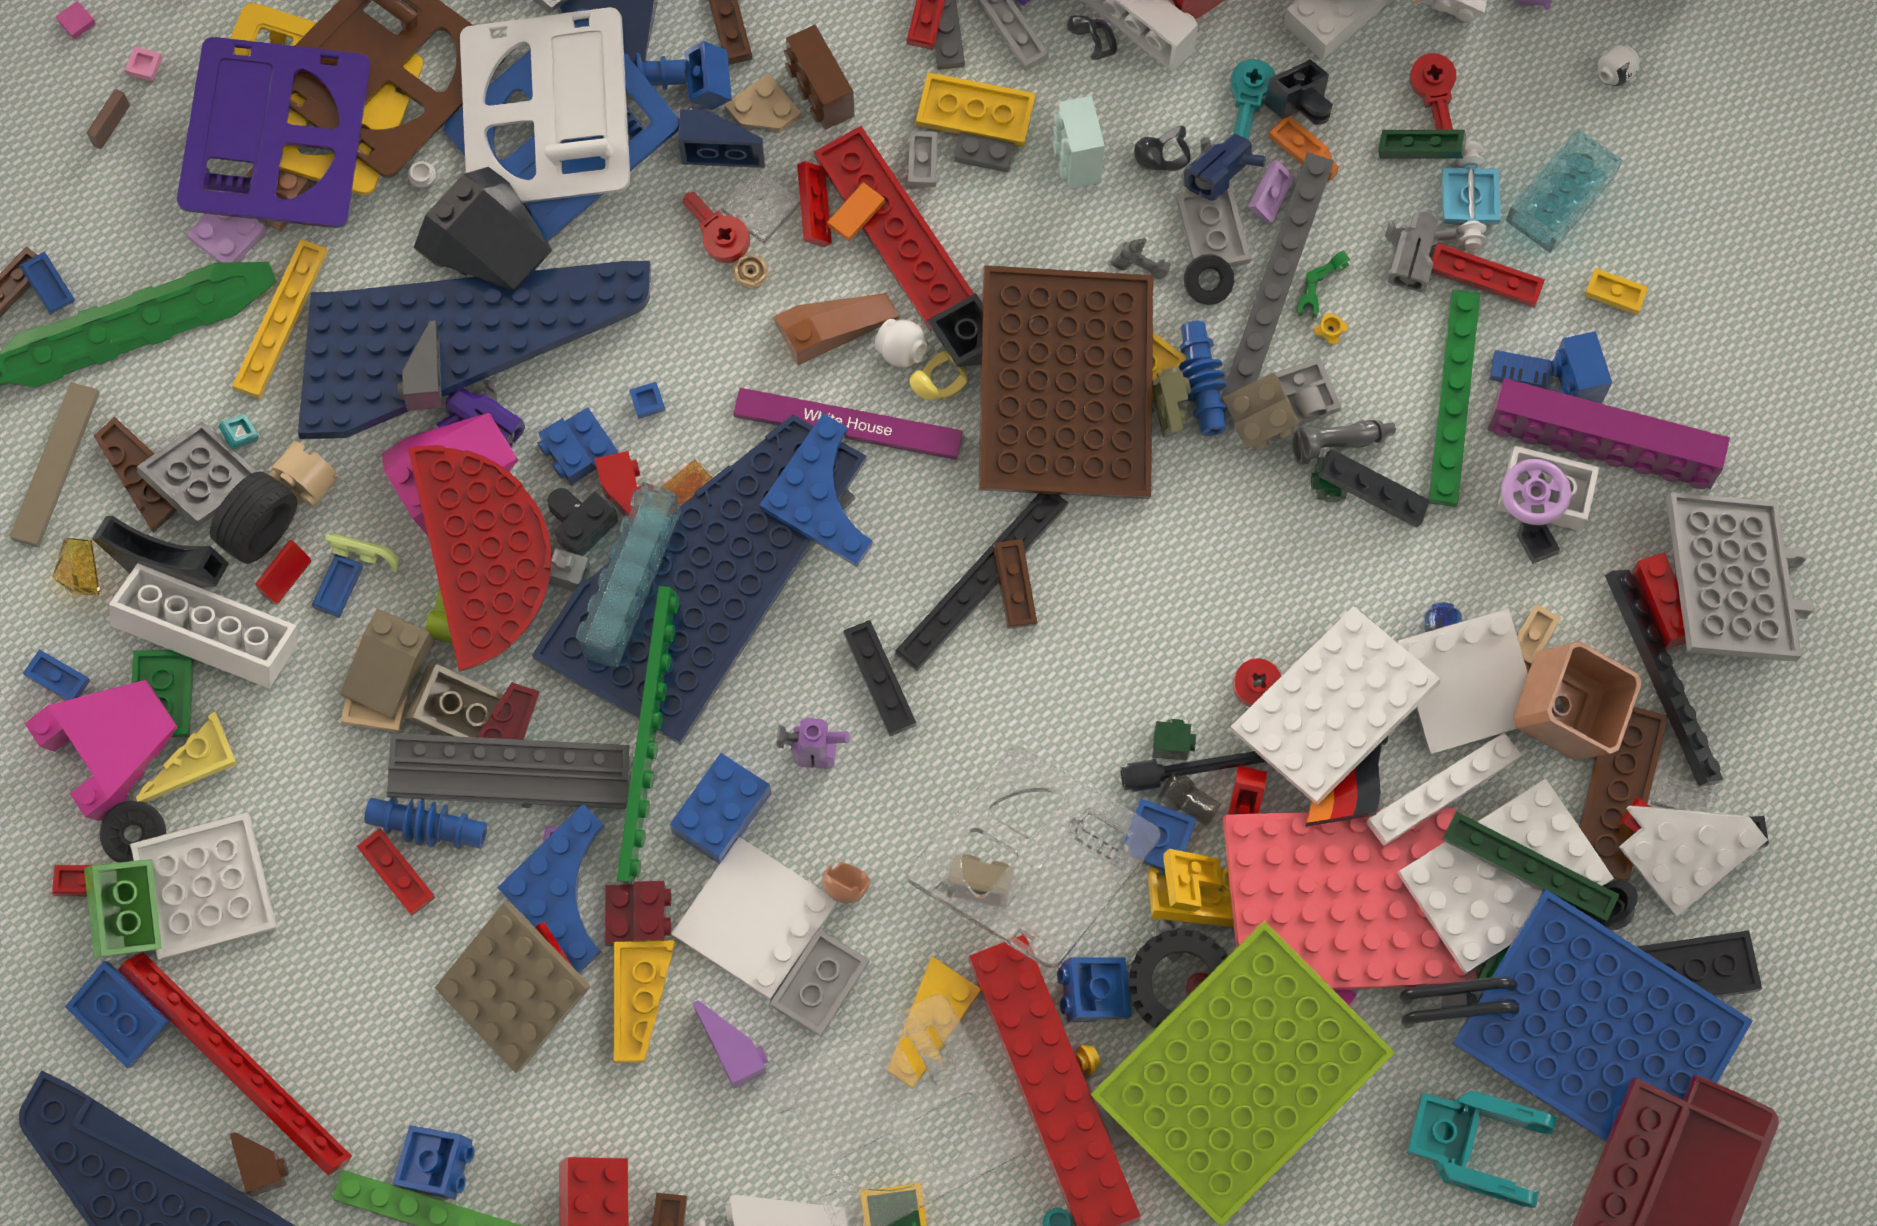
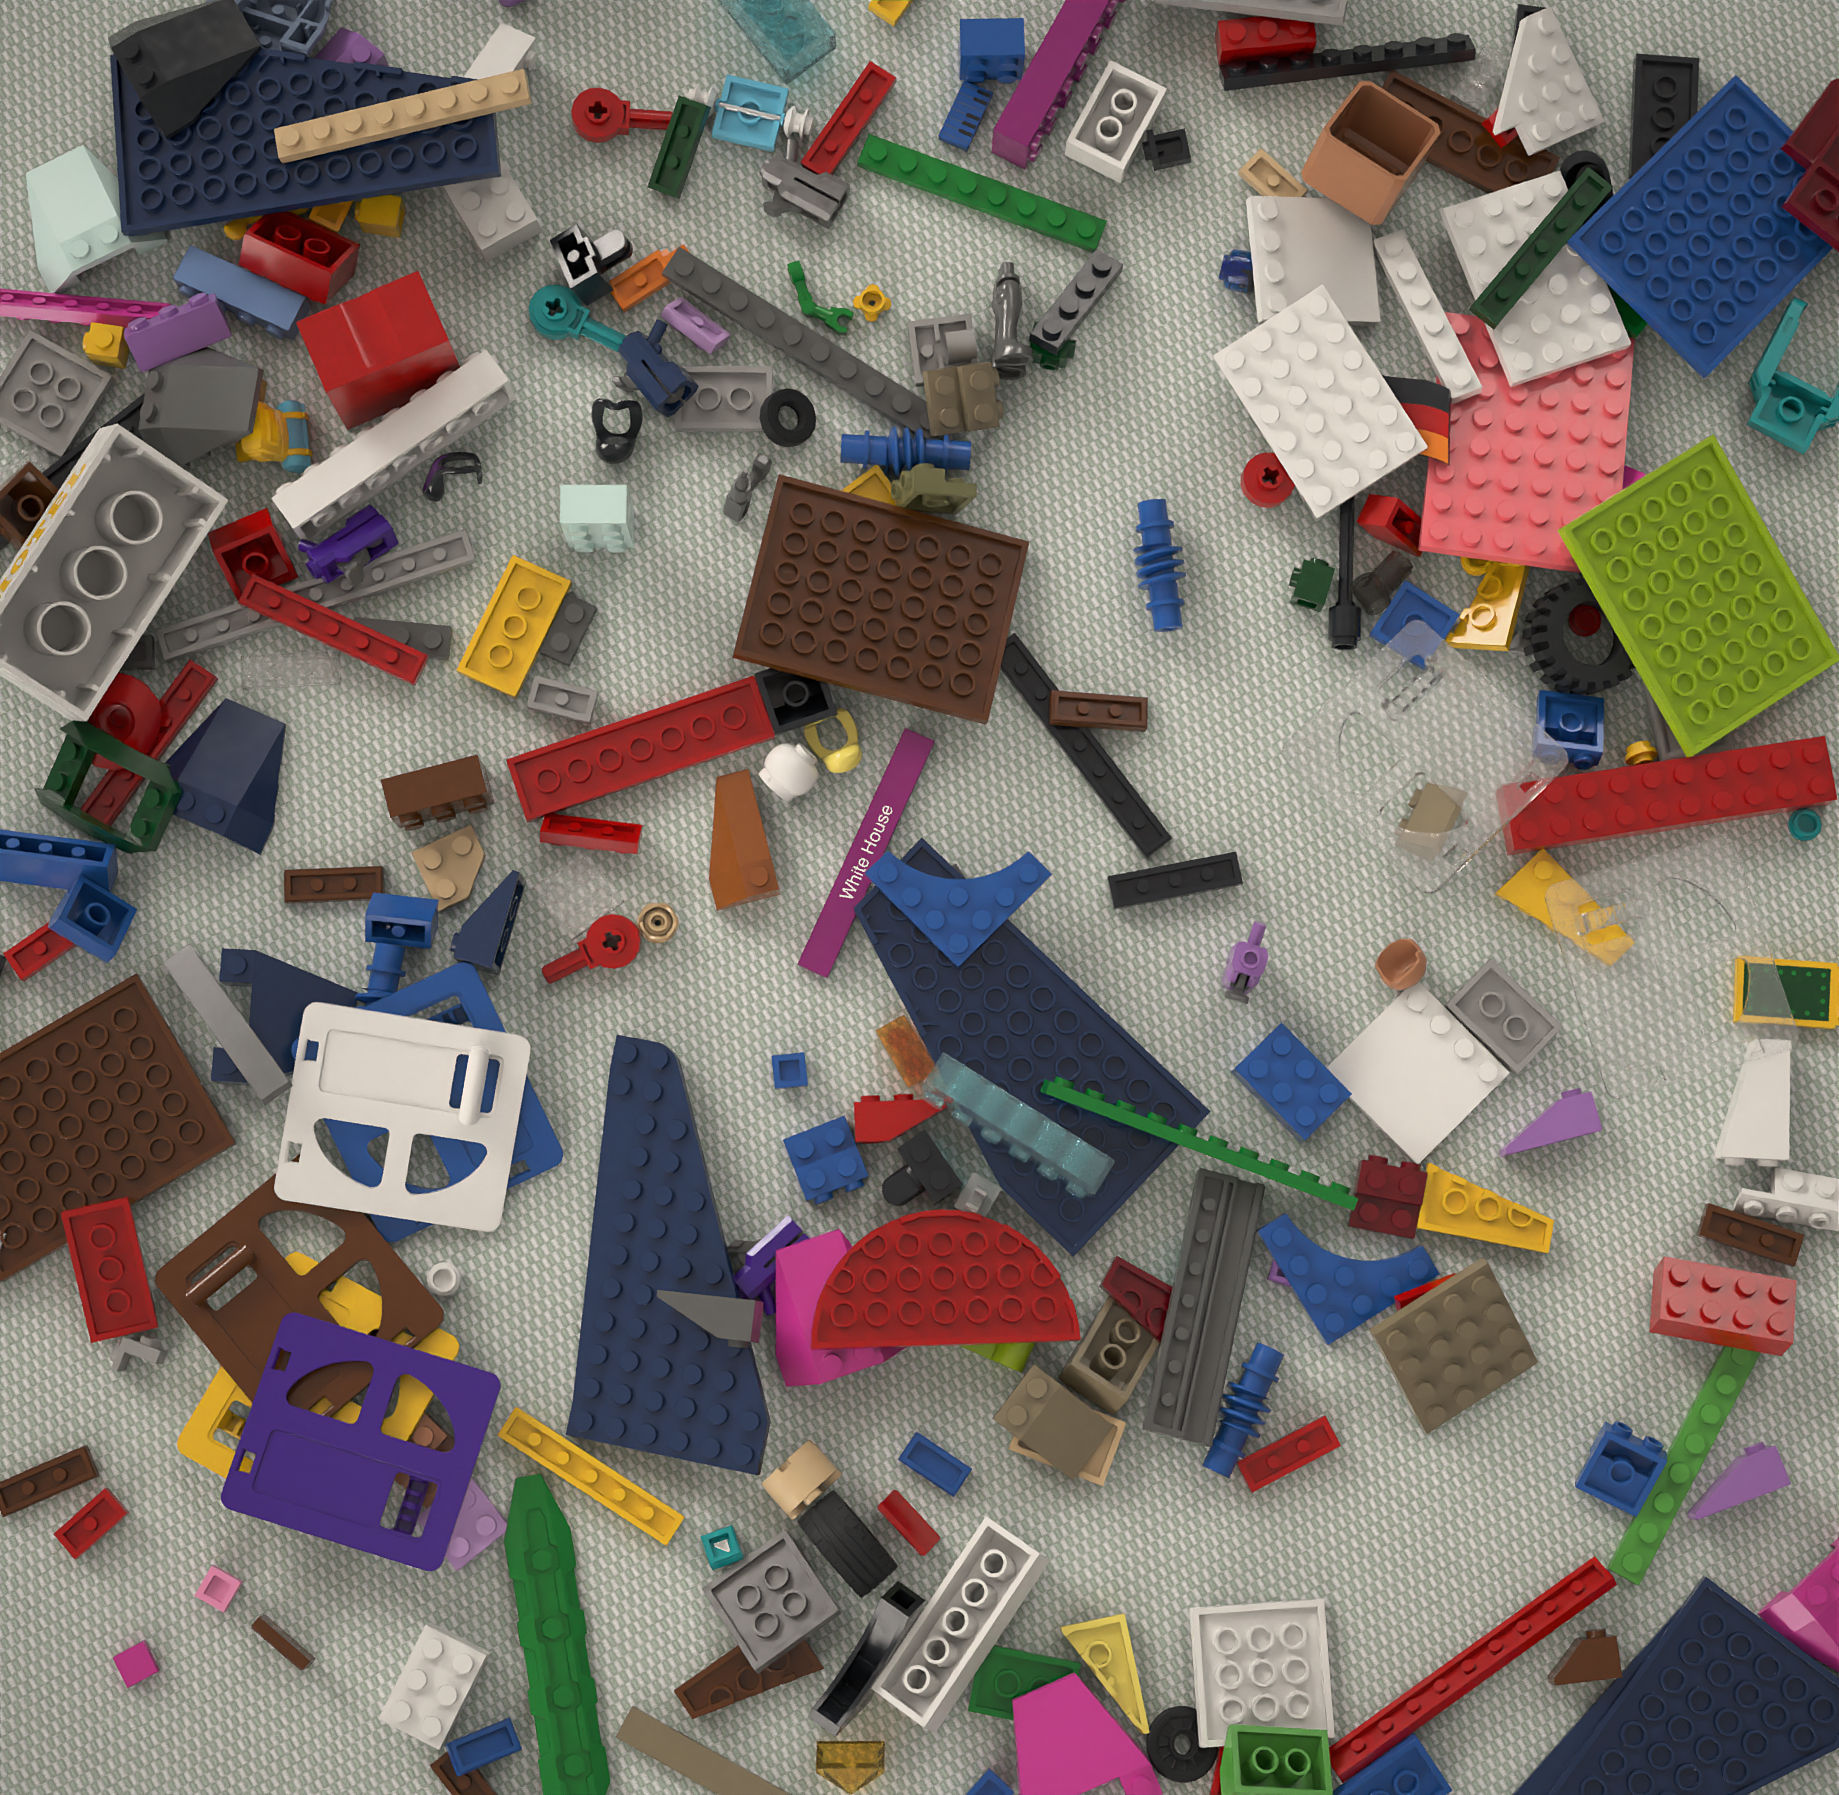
camera: 80 degrees left, 10 degrees up
(91, 236) = (434, 1685): none -> white brick
(368, 551) = (904, 1421): yellowish green piece -> none
(483, 231) = (543, 1216): black wedge -> none
(856, 212) = (616, 787): orange tile -> none
(1156, 606) = (1159, 565): none -> blue piece
(1187, 873) = (1469, 605): yellow plate -> none
(1458, 1000) = (1664, 360): black piece -> none
(1523, 511) = (1146, 150): lavender plate -> none

